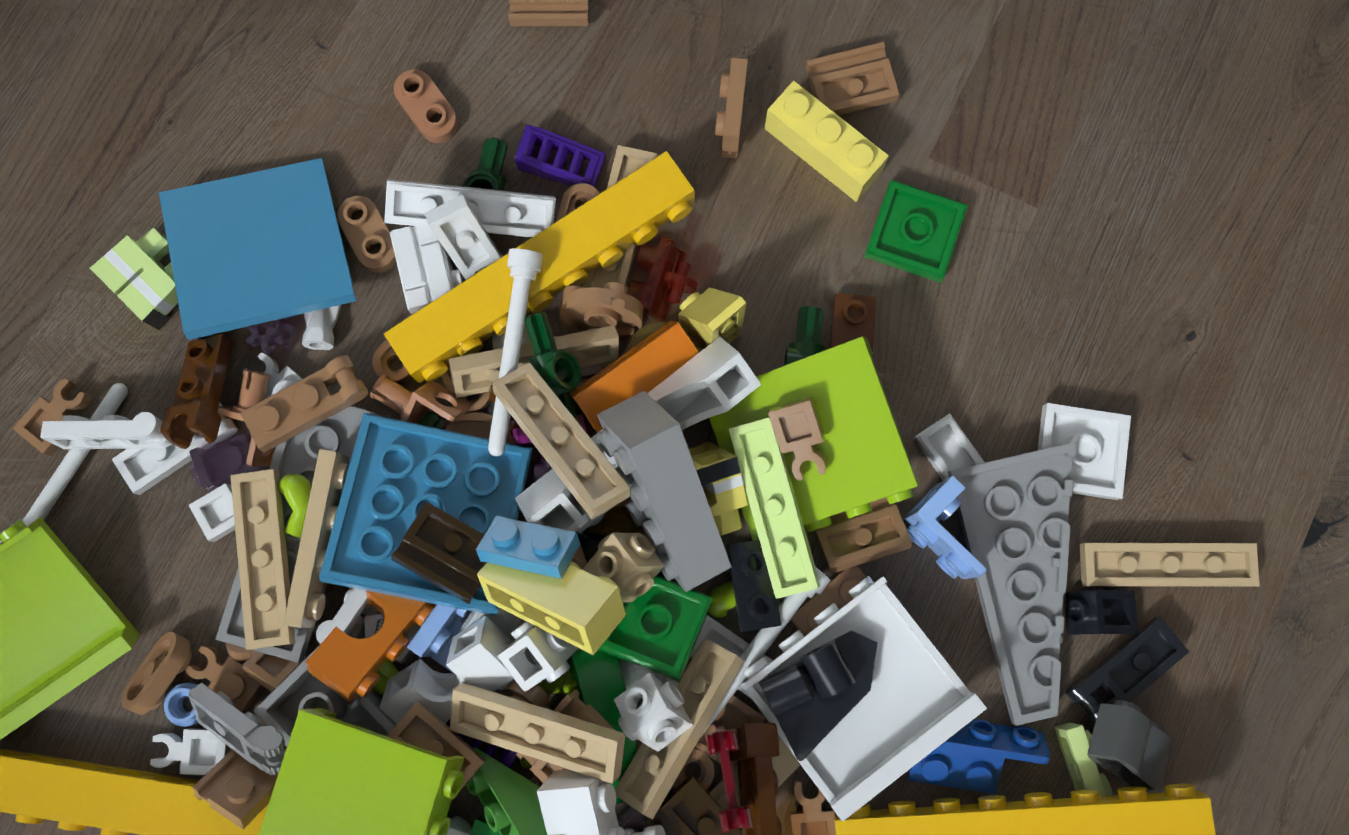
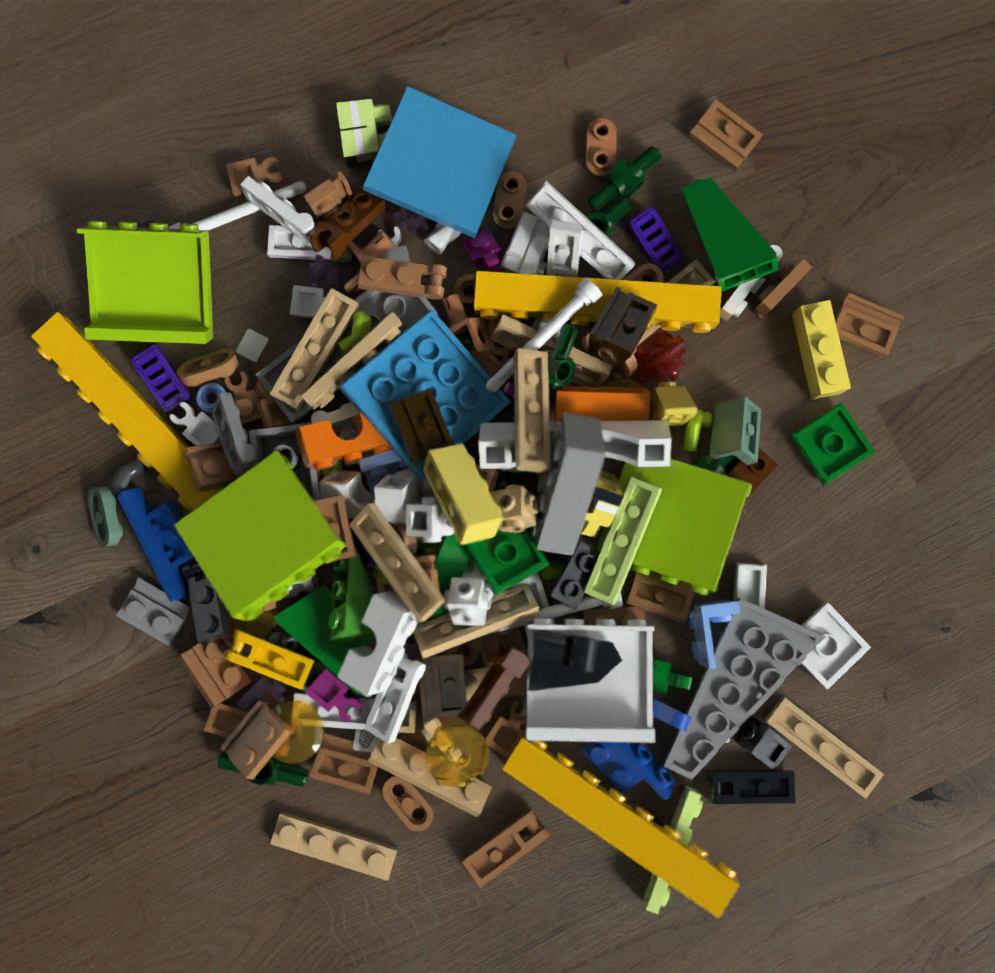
camera: 35 degrees right, 5 degrees up
(77, 712) = (146, 358): none -> dark purple slope
(155, 376) = (328, 197): none -> medium nougat plate
(191, 608) = (252, 345): none -> white sticker
(377, 307) = (484, 250): none -> magenta plate
(475, 118) = (624, 178): none -> dark green axle
(528, 547) = (468, 457): dark azure plate -> none
(588, 267) = (623, 322): none -> dark brown plate
(634, 96) = (727, 238): none -> green slope
(696, 125) = (736, 302): none -> white plate
(721, 742) = (470, 689): dark red flag -> none
(756, 327) = (693, 428): none -> lime arm
(798, 431) = (671, 508): medium nougat plate -> none
(802, 293) = (736, 430): none -> sand green panel
(936, 623) = (663, 677): none -> green plate
(978, 661) = (671, 715): none -> blue beam
(1130, 746) = (719, 826): dark grey brick -> none

